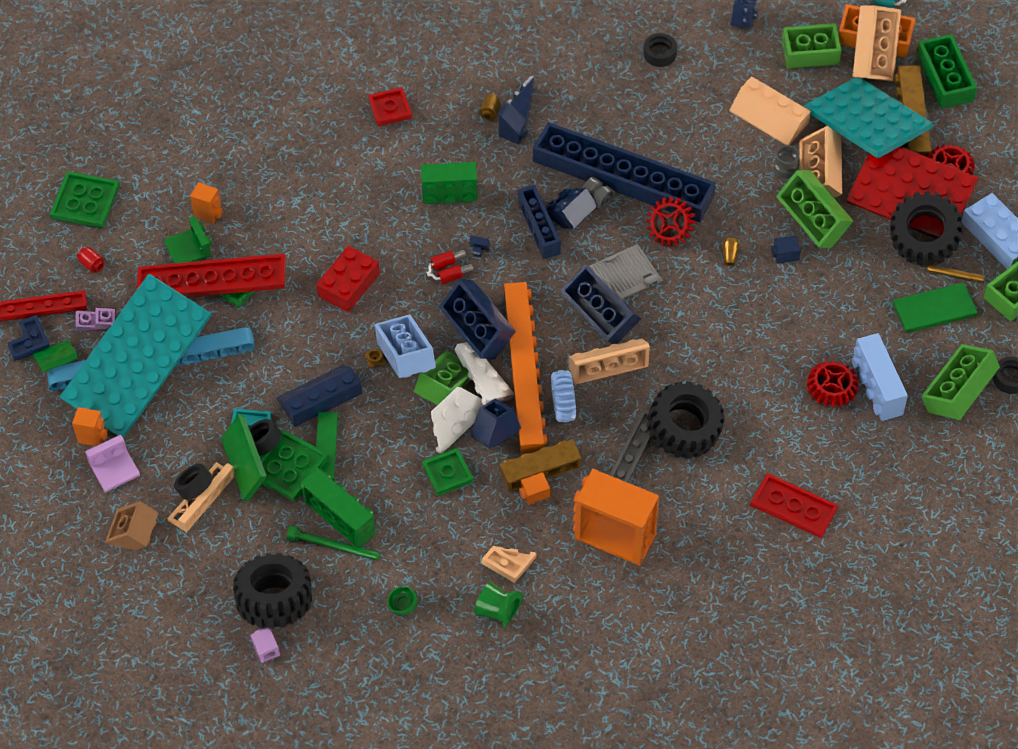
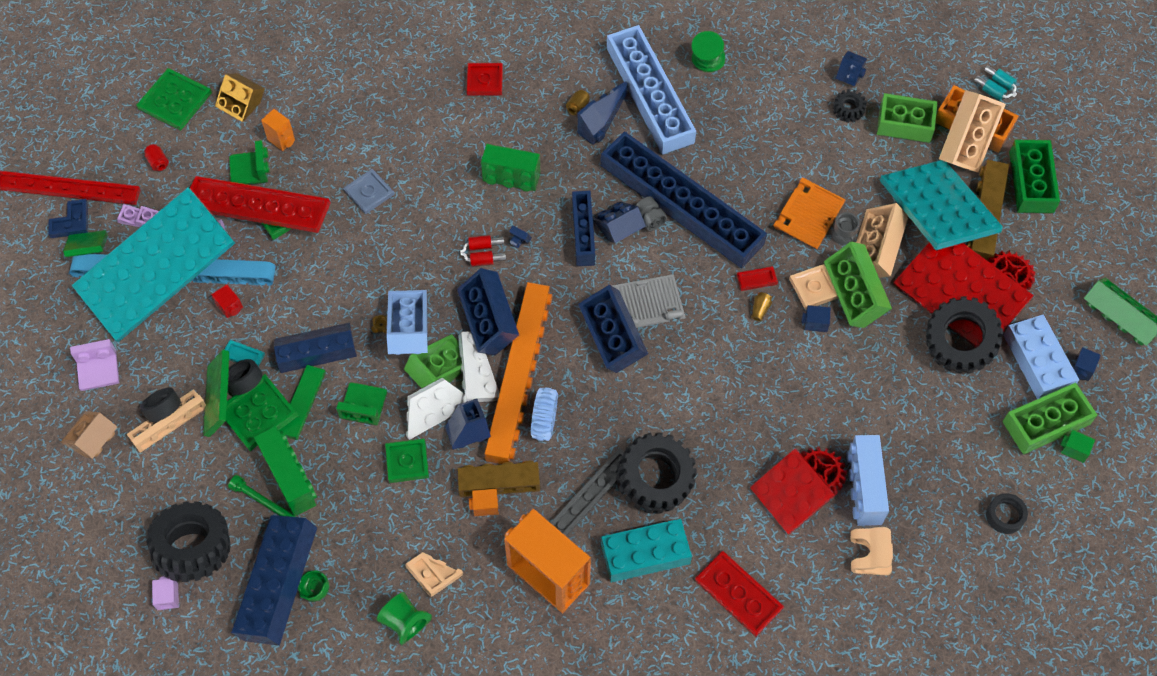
camera: 15 degrees right, 5 degrees up
(89, 427) = (86, 322): orange brick -> none
(150, 181) = (239, 96): none -> pearl gold slope
(217, 374) = (227, 301): none -> red brick
(315, 240) = (368, 191): none -> sand blue tile
(348, 278) = (383, 238): red brick -> none
(365, 604) = (274, 580): none -> dark blue brick
(385, 433) = (362, 403): none -> green bracket
(557, 77) = (651, 89): none -> light blue brick
(601, 28) = (708, 51): none -> green hat
(609, 360) = (603, 388): light nougat slope -> none
(660, 60) = (754, 96): black tyre -> none
(674, 215) = (715, 267): red gear -> none
(698, 490) = (646, 550): none -> teal brick
(718, 228) = (757, 278): none -> red tile
(747, 156) = (809, 213): none -> orange window
(750, 55) = (849, 97): none -> black tyre
(770, 111) = (846, 173): light nougat slope -> none
(773, 221) = (814, 286): none -> light nougat plate
(814, 404) = (792, 491): none -> red plate
(907, 430) = (881, 551): none -> light nougat piece
(934, 307) = (949, 419): green tile -> none
(955, 273) = (981, 388): pearl gold bar -> none
(960, 381) = (950, 508): bright green brick -> none

